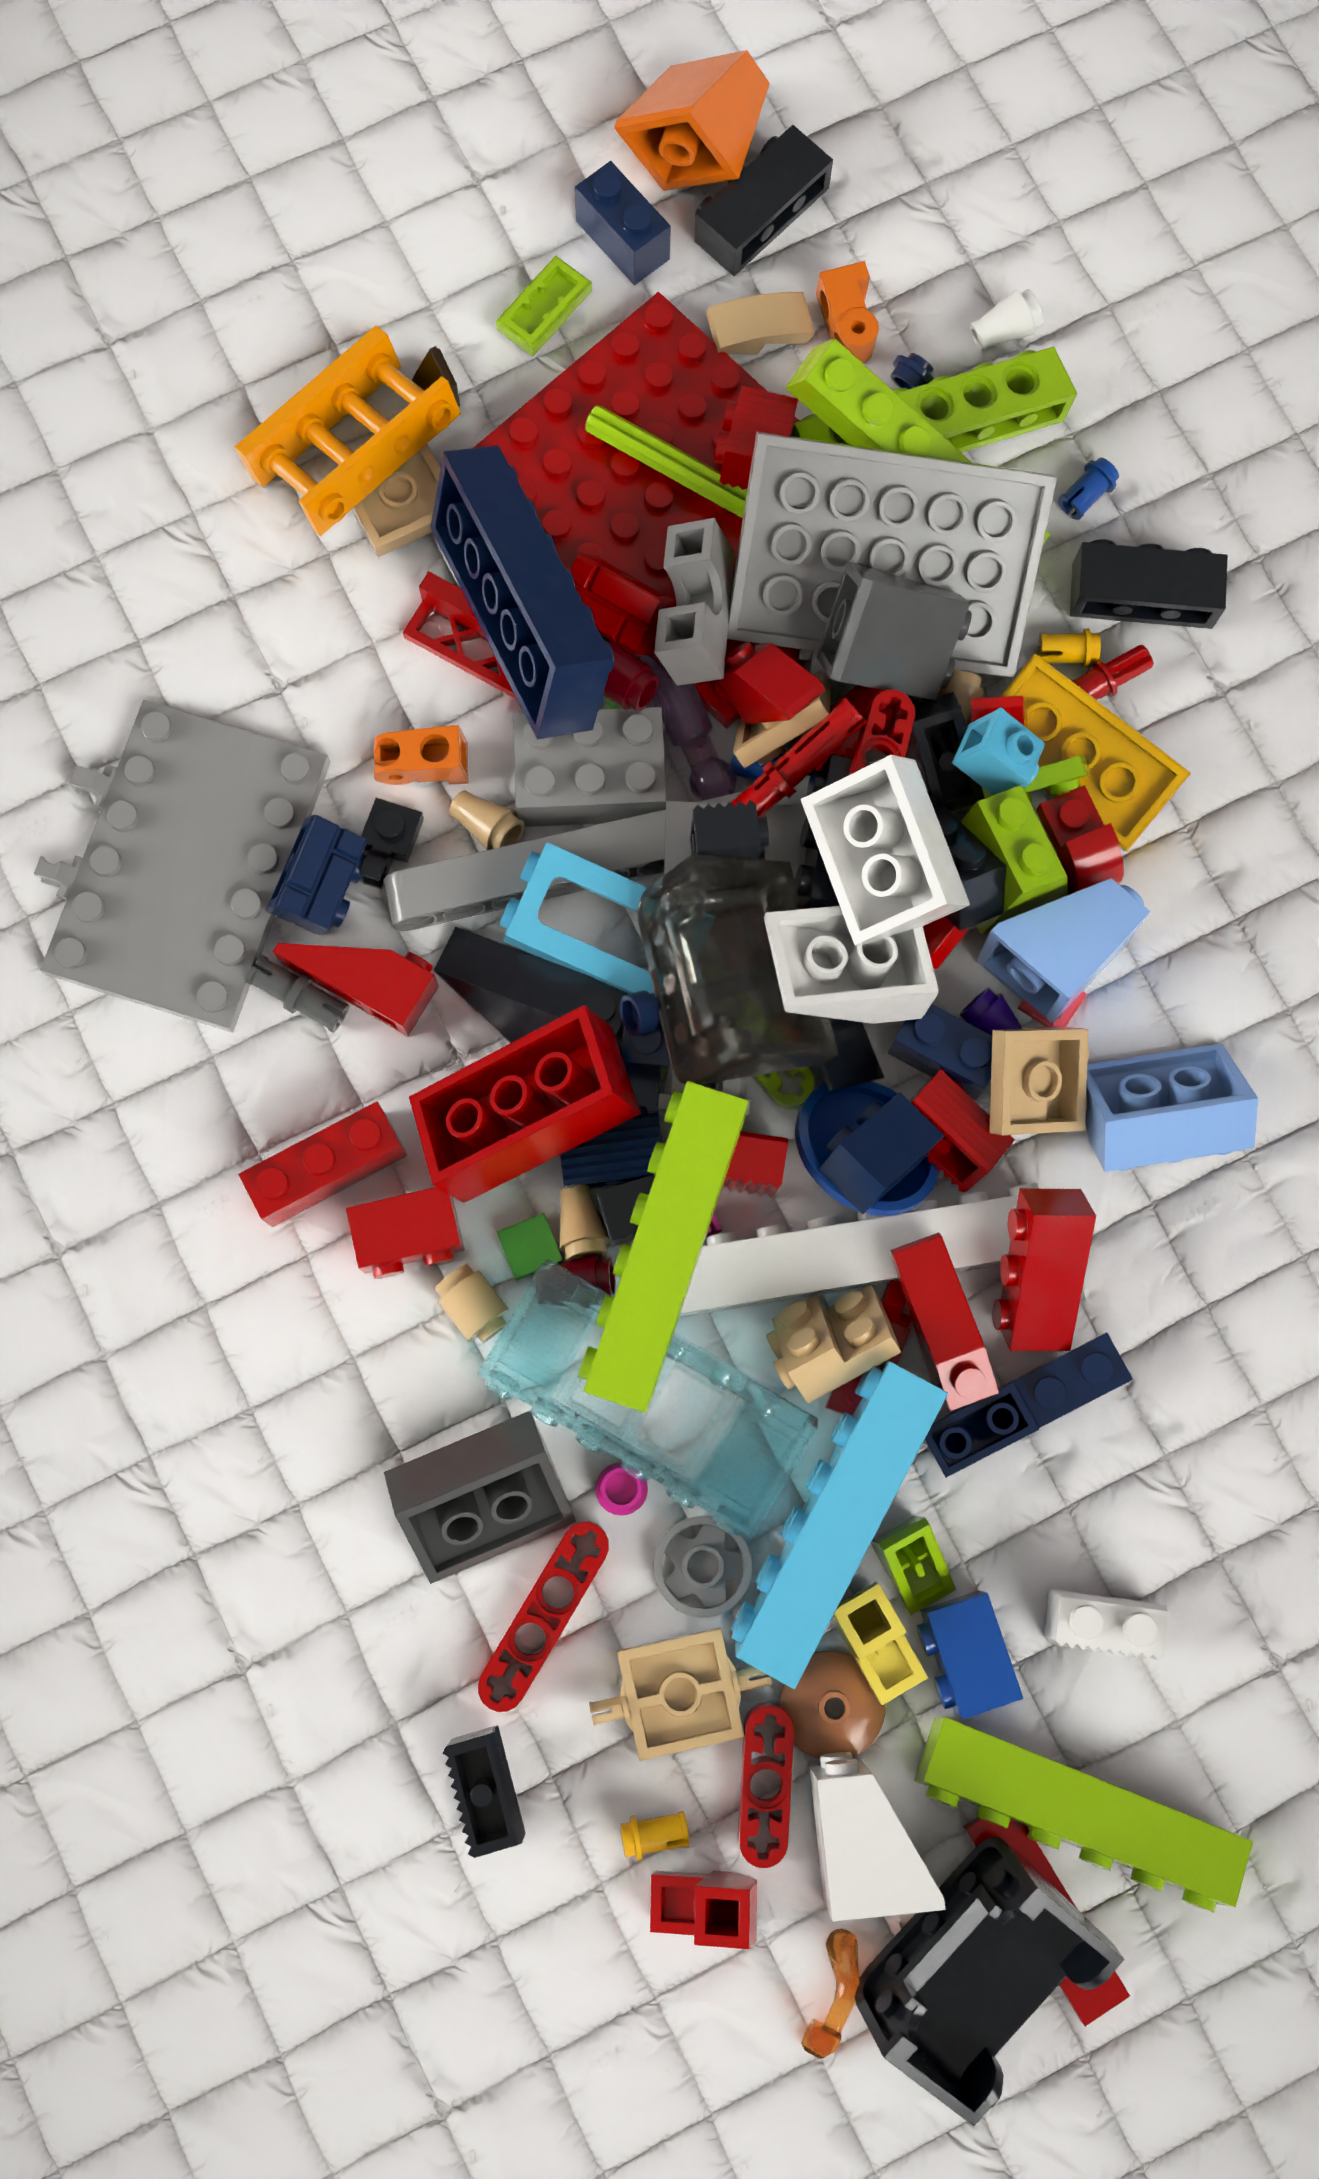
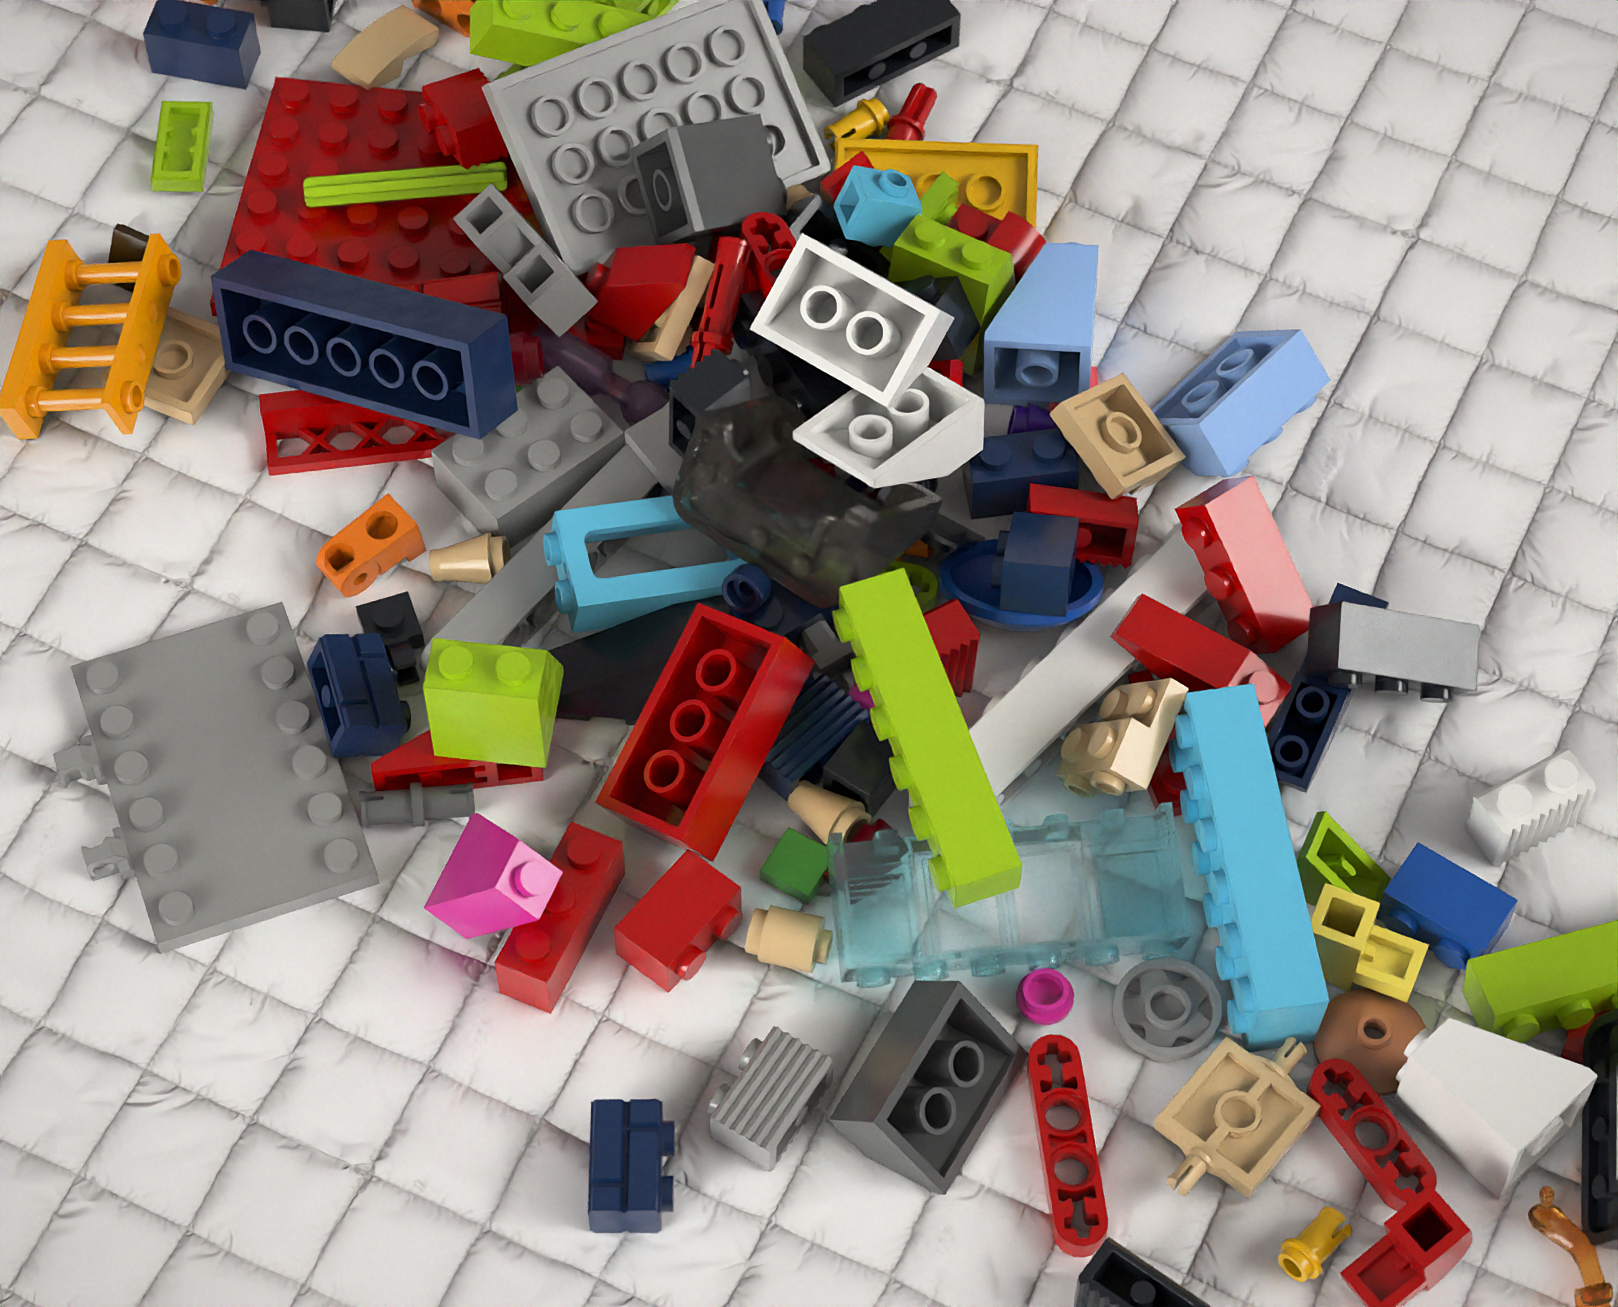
camera: 35 degrees left, 20 degrees down
(223, 1395) = (627, 1166): none -> dark blue brick
(295, 1102) = (491, 882): none -> dark pink slope
(359, 1419) = (770, 1097): none -> light grey brick
(387, 961) = (491, 701): none -> lime slope
(1098, 1426) = (1392, 651): none -> brick

